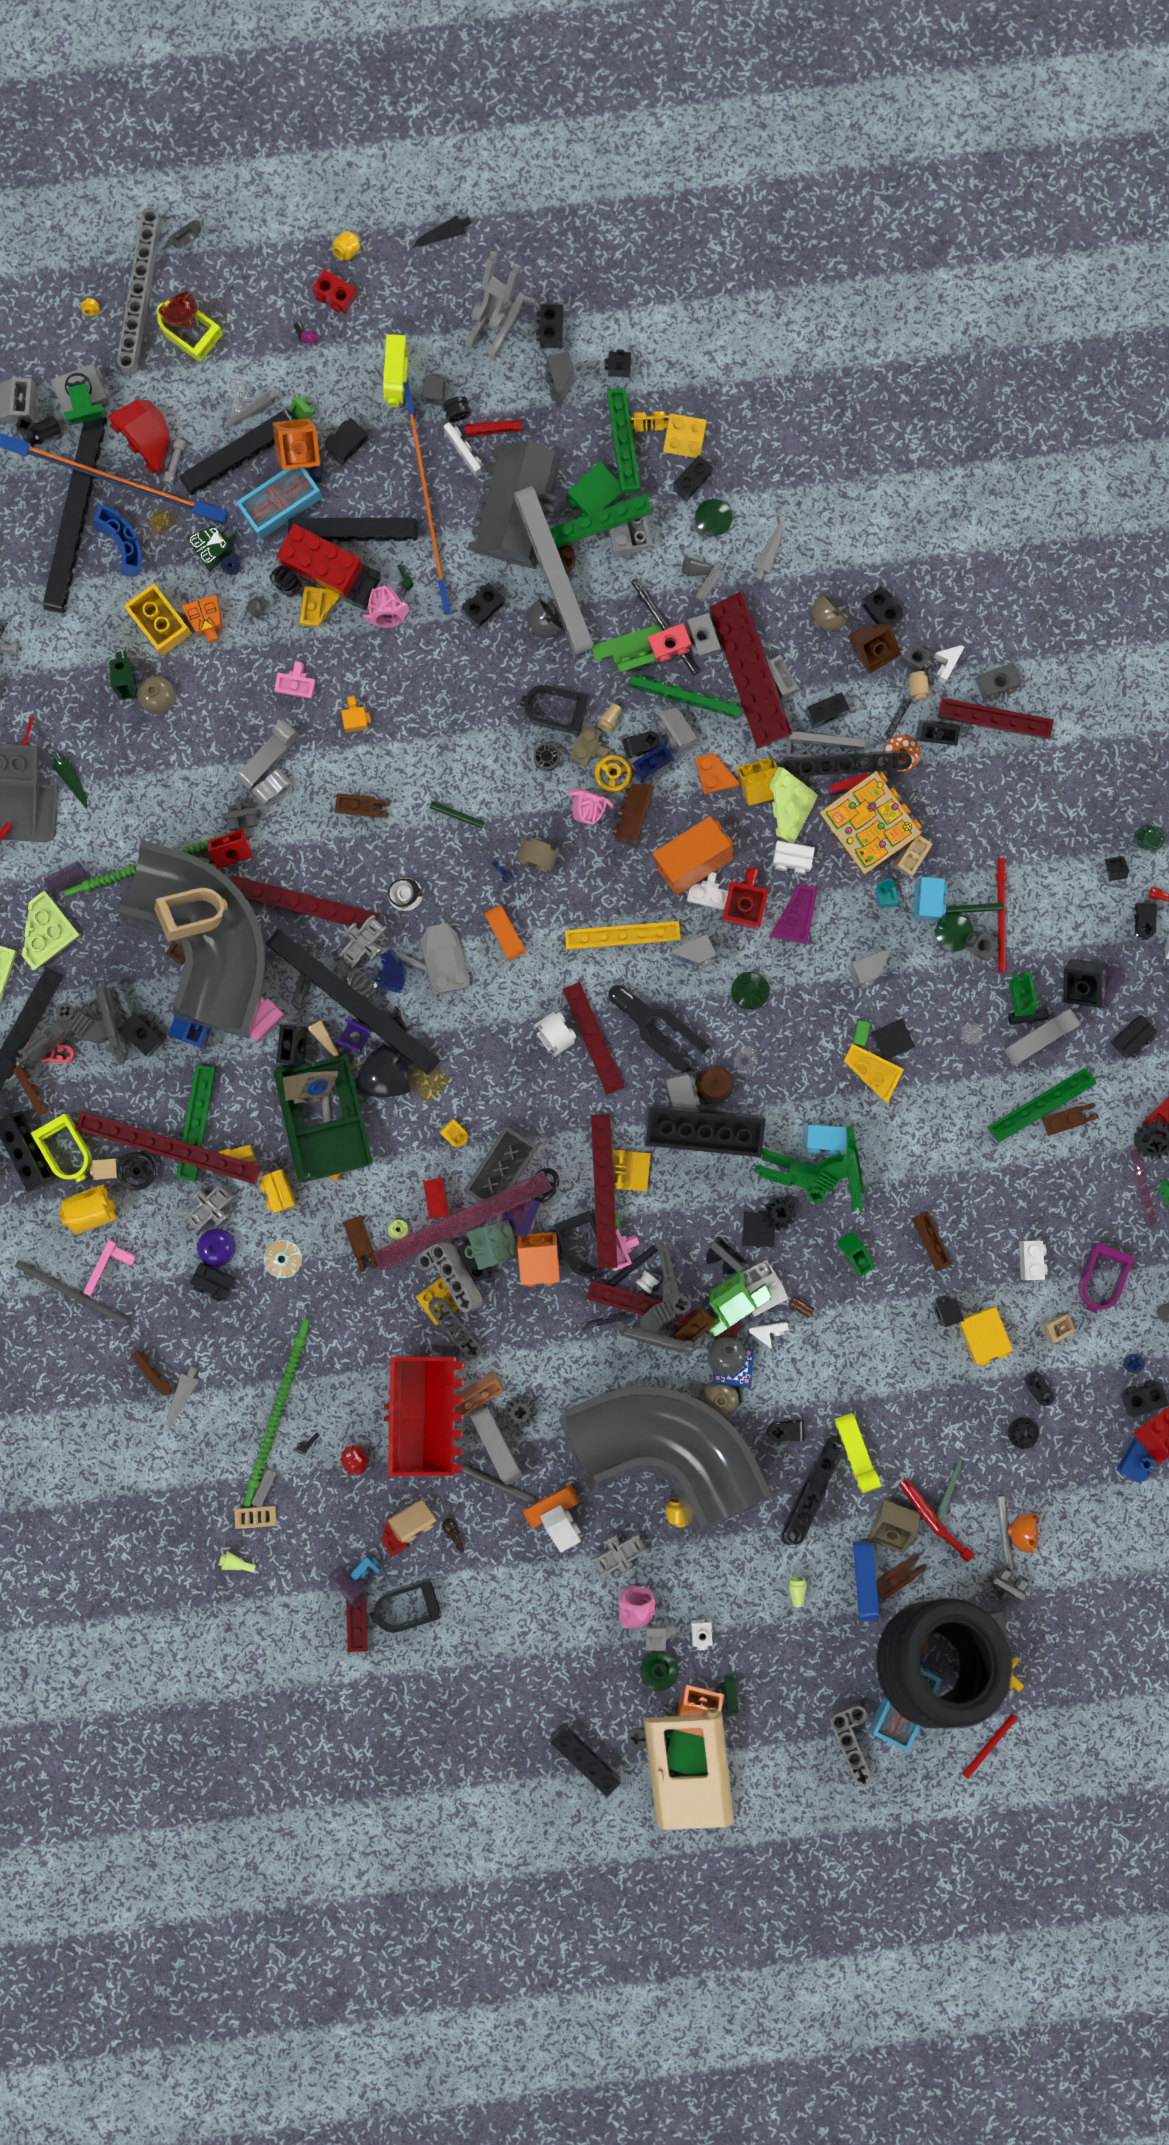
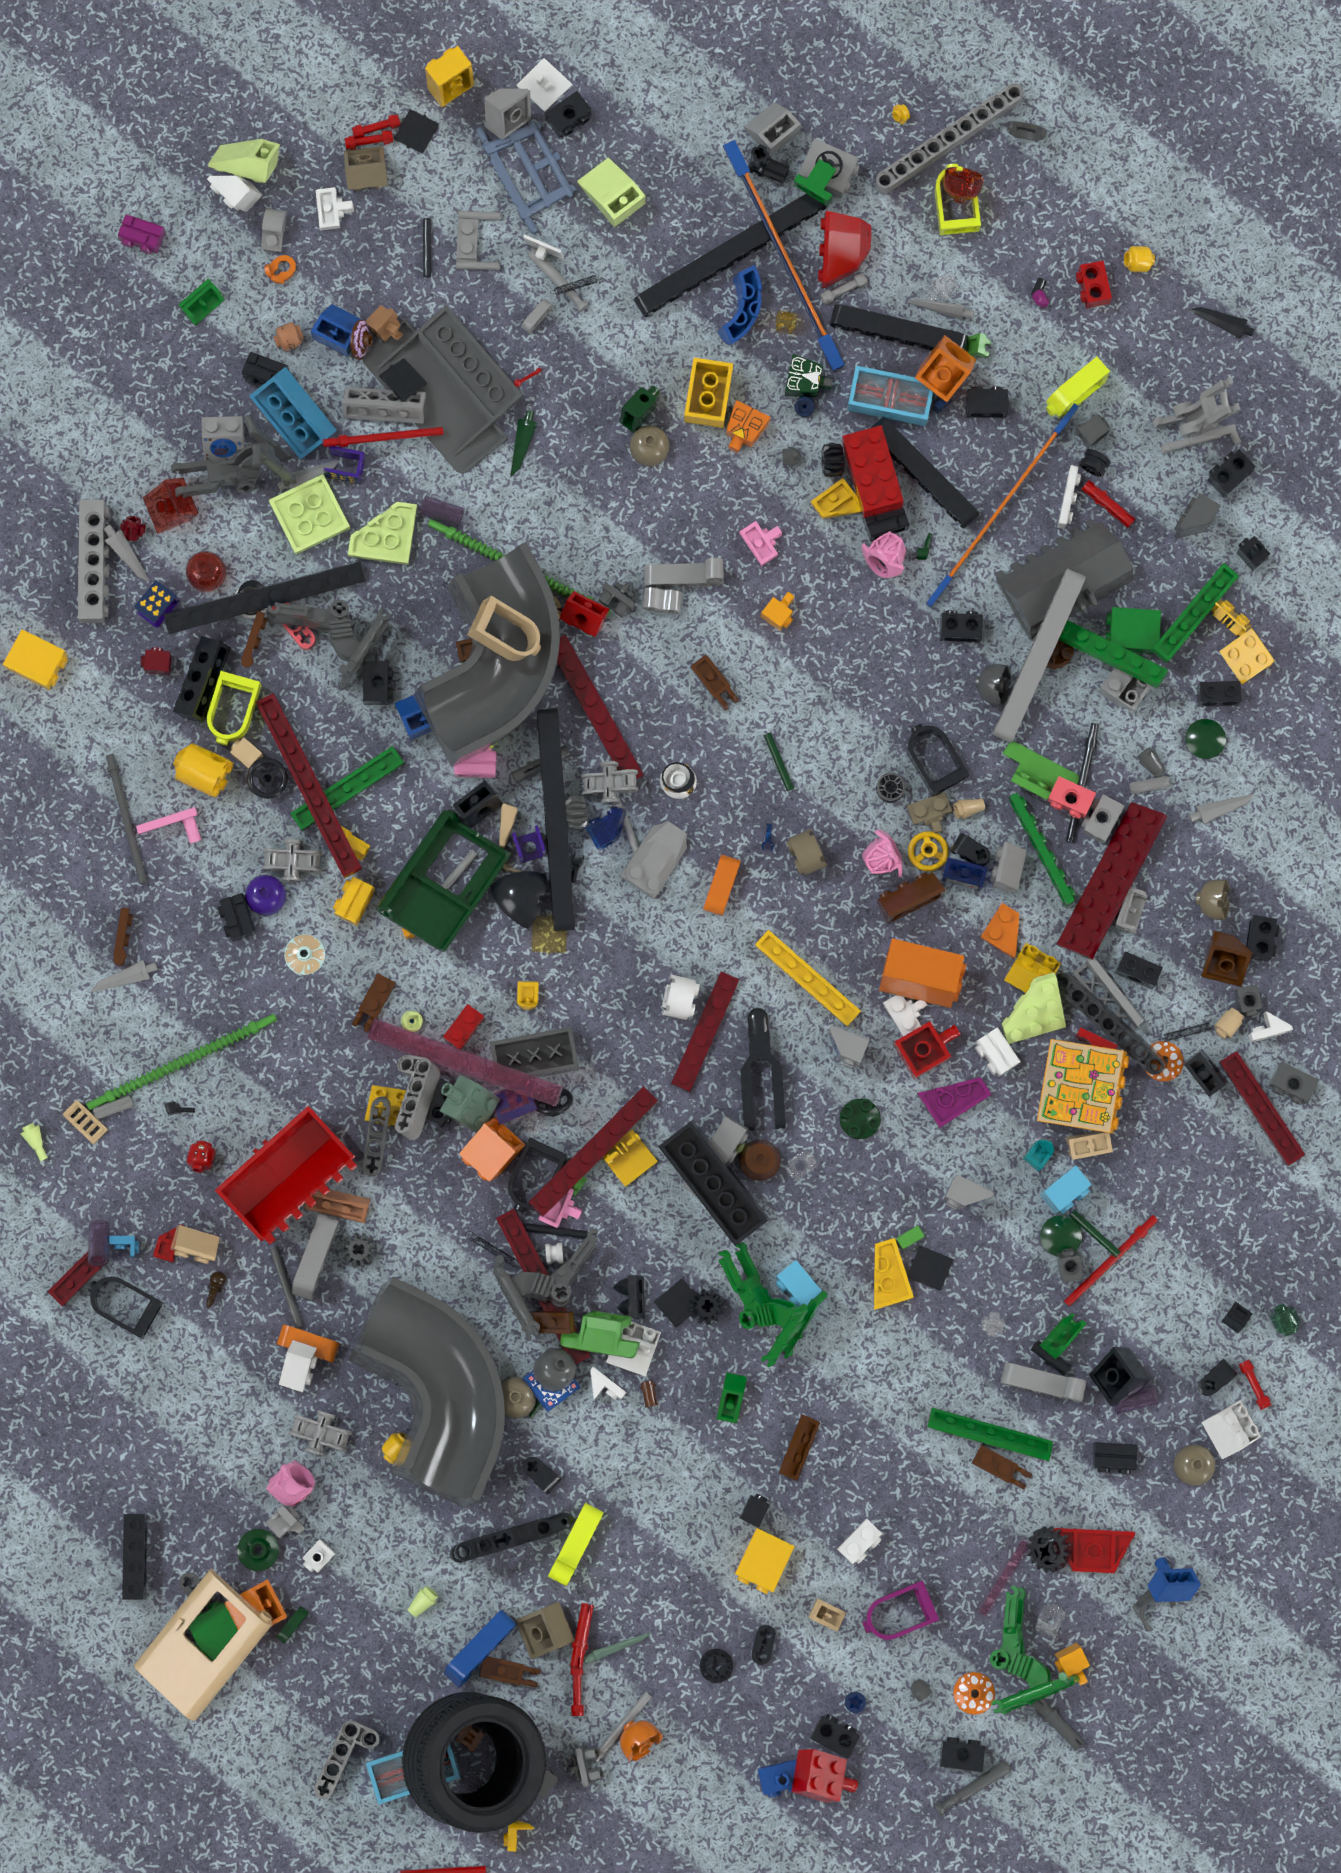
camera: 45 degrees right, 5 degrees down
(309, 1086) = (458, 847): dark tan slope -> none

